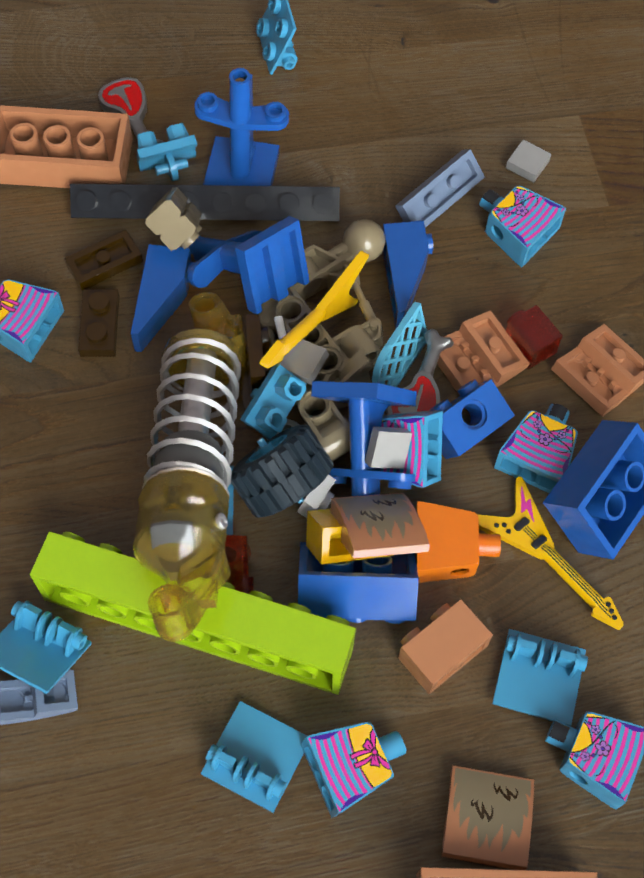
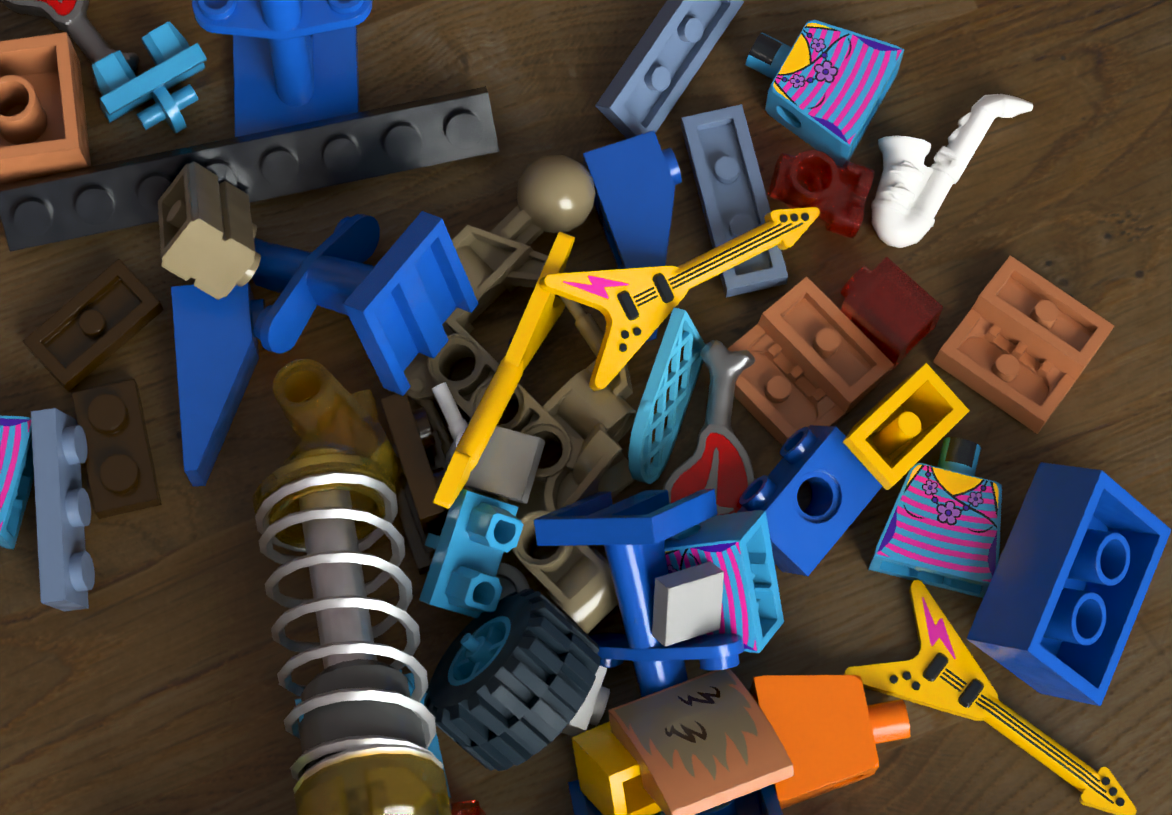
camera: 10 degrees left, 10 degrees up
(59, 343) = (61, 510): none -> sand blue plate
(398, 294) = (642, 298): none -> yellow piece
(459, 268) = (732, 193): none -> sand blue plate
(504, 267) = (832, 189): none -> clear red plate
(530, 388) = (905, 425): none -> yellow slope
(556, 284) = (912, 192): none -> white piece

